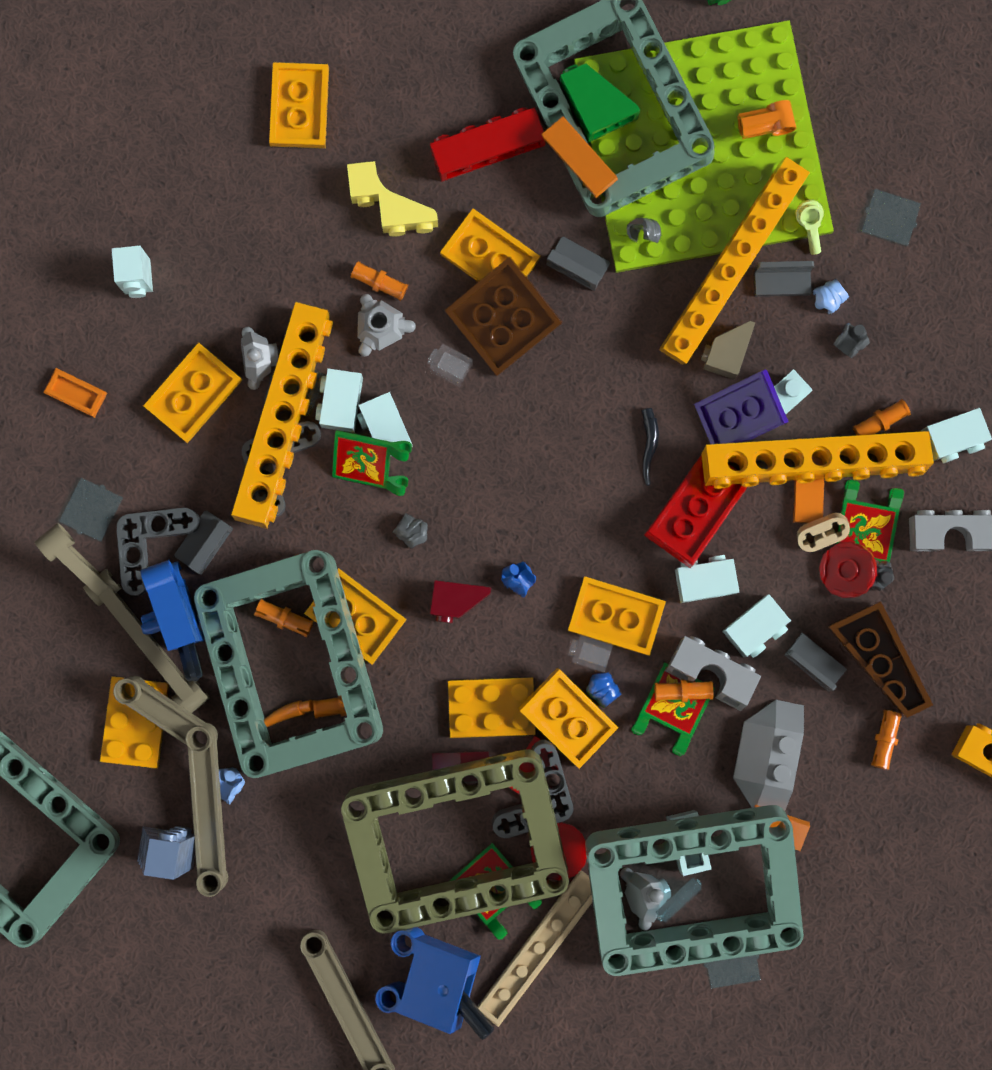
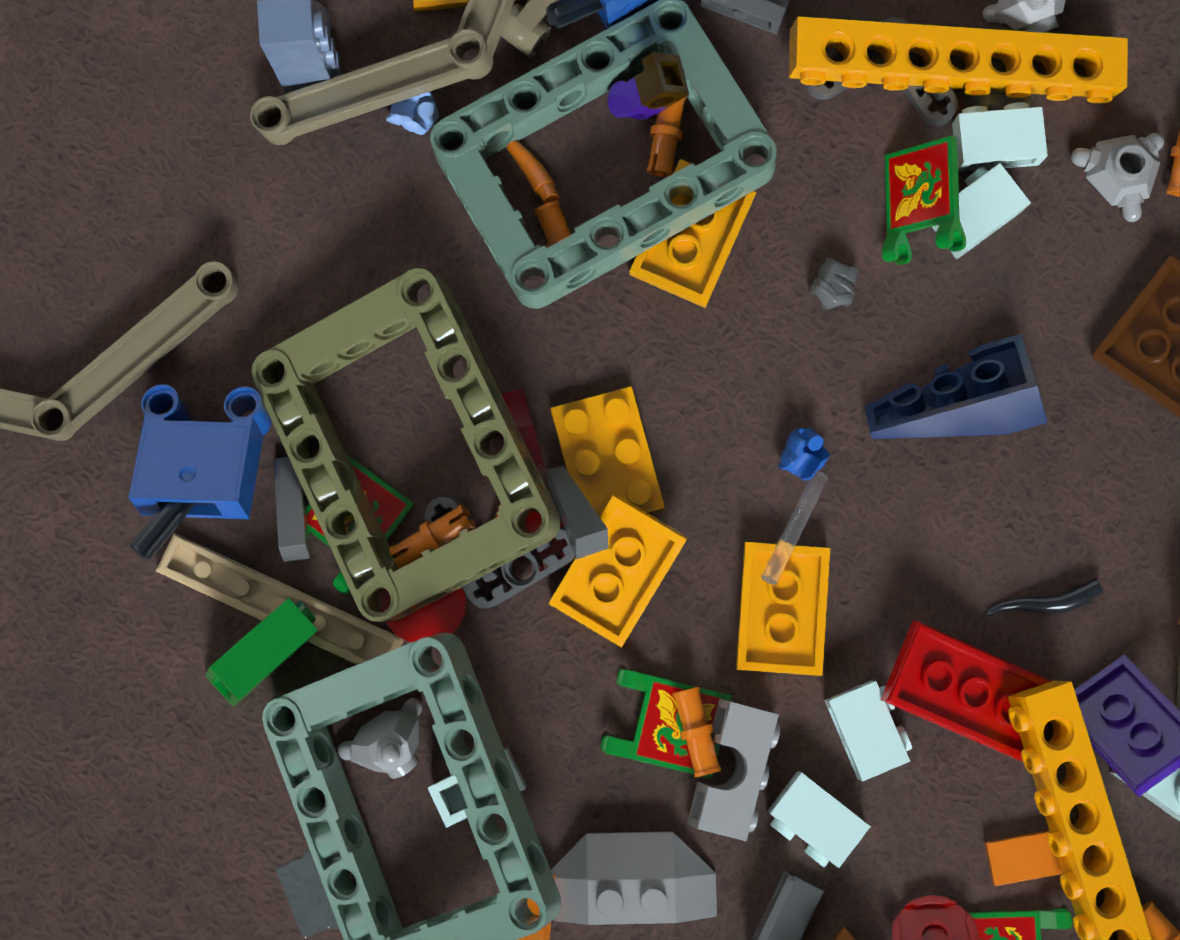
camera: 80 degrees right, 0 degrees up
(255, 621) = (651, 90): none -> dark brown leg
(449, 365) = (1090, 282): clear brick -> none
(455, 599) = (751, 369): dark red slope -> none
(480, 927) = (290, 512): none -> dark grey piece
(508, 455) = (980, 398): none -> dark blue wedge
(519, 836) = (432, 536): none -> orange pin
(530, 736) = (580, 521): none -> dark grey piece
(566, 596) = (794, 528): none -> clear bar
(569, 966) = (262, 651): none -> green slope
(590, 653) = (719, 581): clear brick -> none
(603, 689) = (672, 612): blue arm -> none
(679, 900) = (391, 791): clear light blue piece -> none
(825, 538) = (973, 895): tan beam -> none

